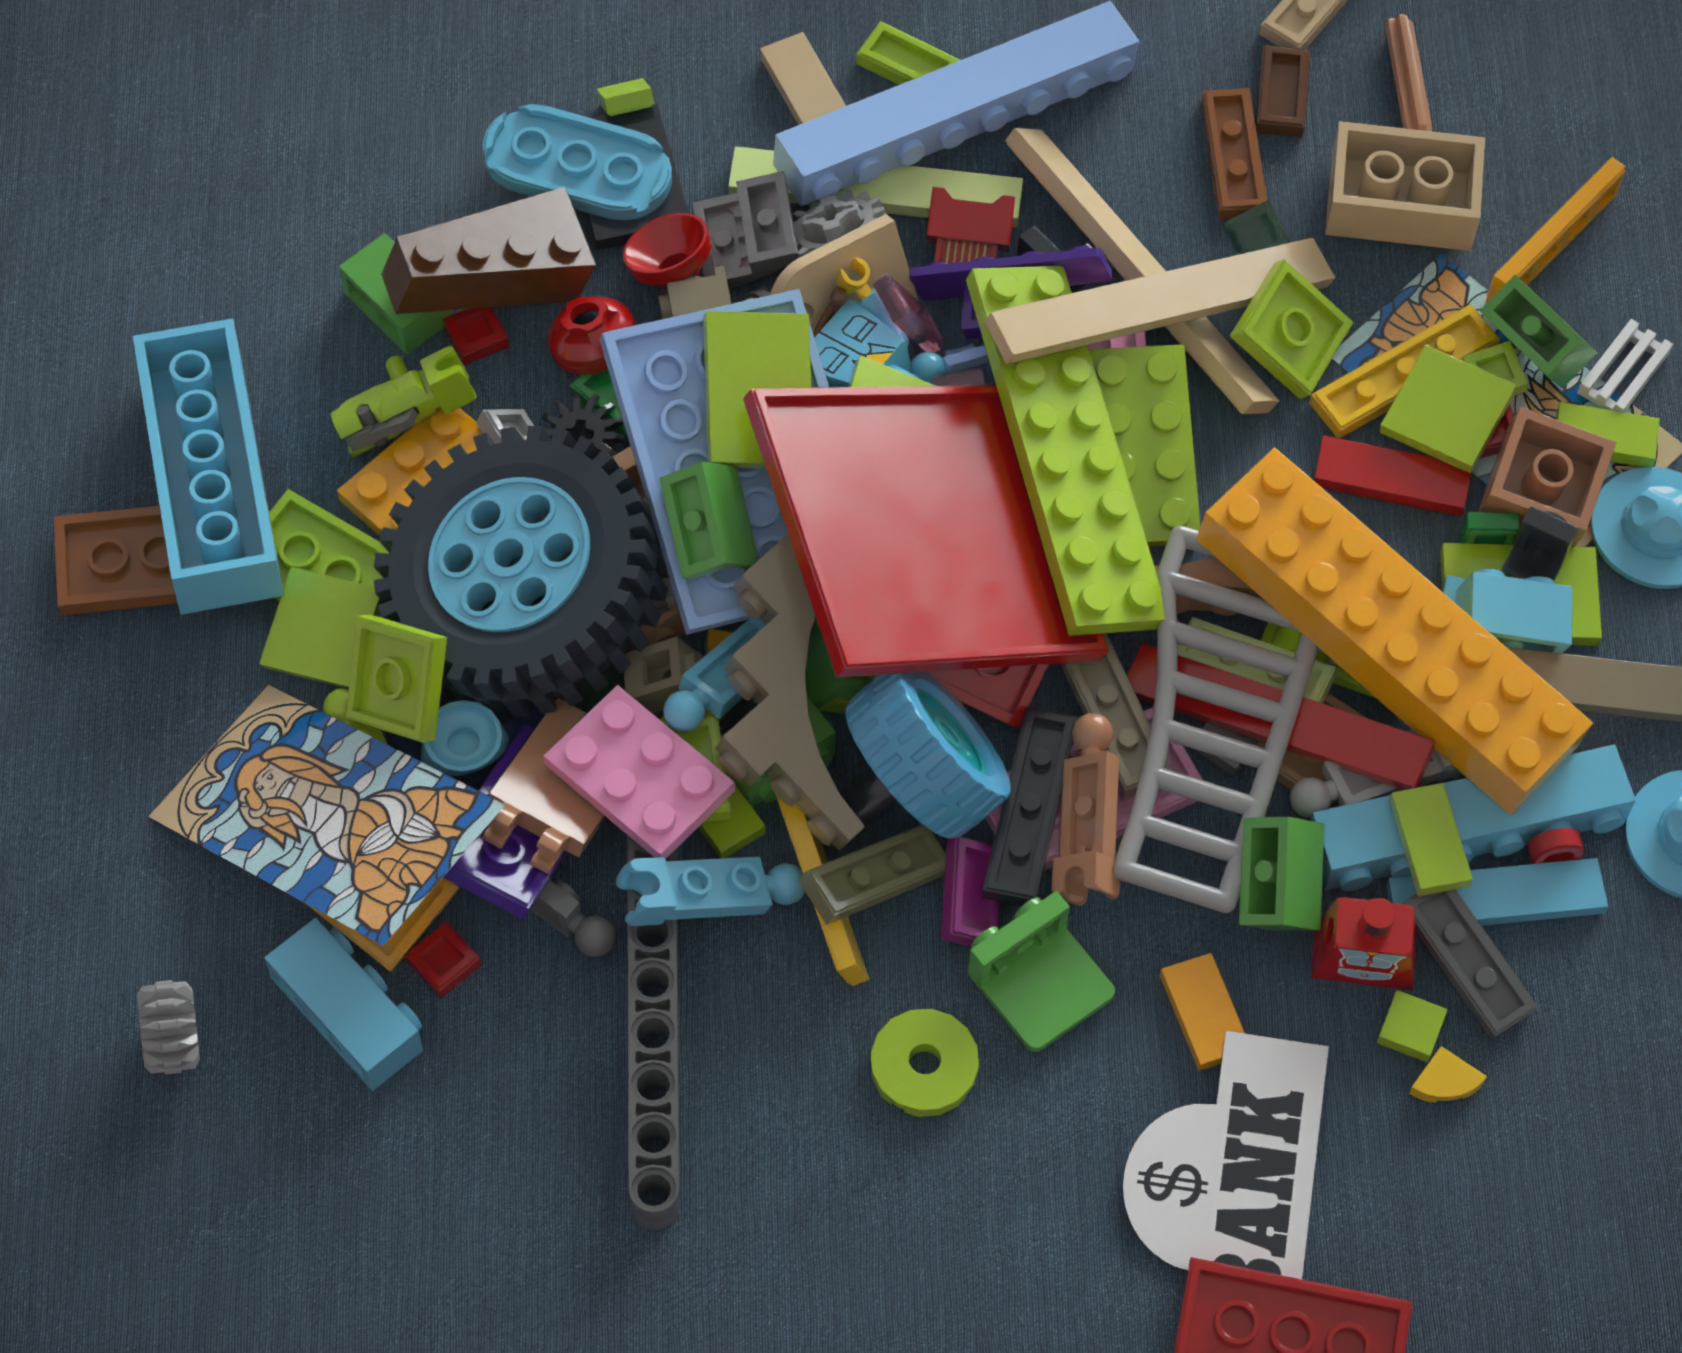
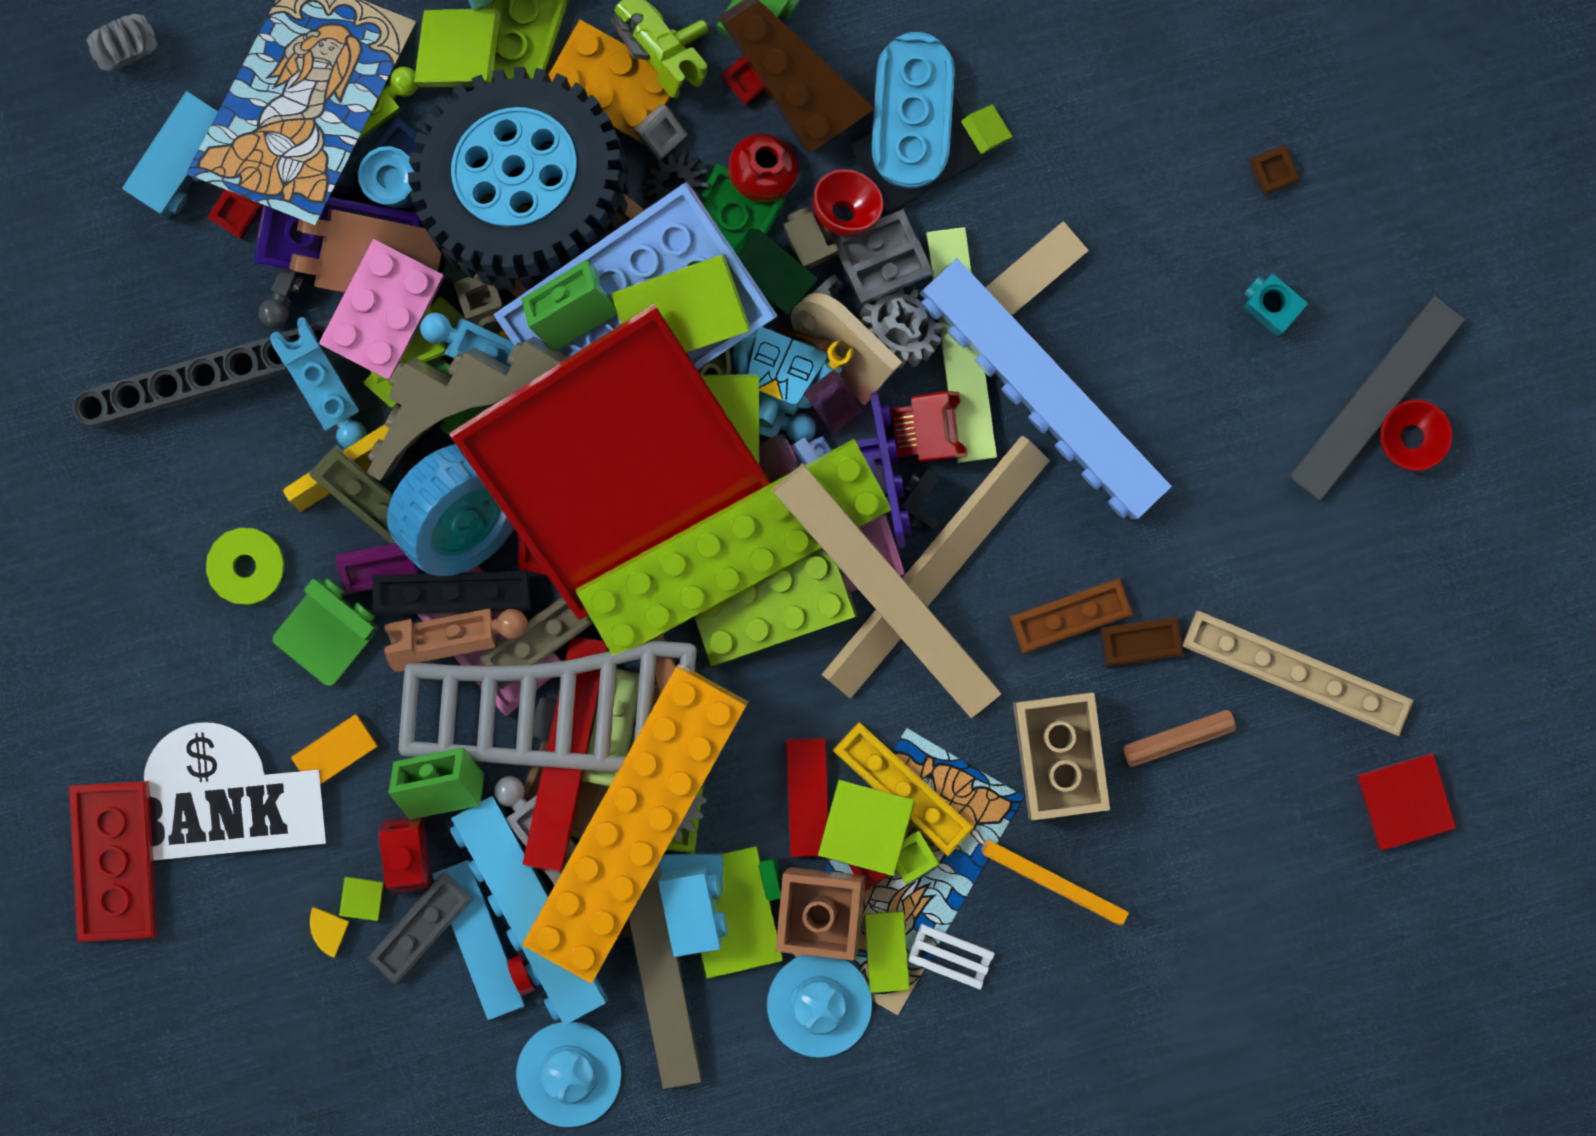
camera: 75 degrees right, 25 degrees up
(396, 678) = (409, 115): lime tile -> none
(900, 55) = (1088, 340): lime tile -> none
(1256, 229) = (995, 649): clear green tile -> none
(1291, 329) = (907, 695): lime tile -> none
(1430, 839) = (488, 884): lime tile -> none
(1538, 331) = (951, 884): bright green brick -> none
(1540, 546) = (752, 918): black bracket -> none

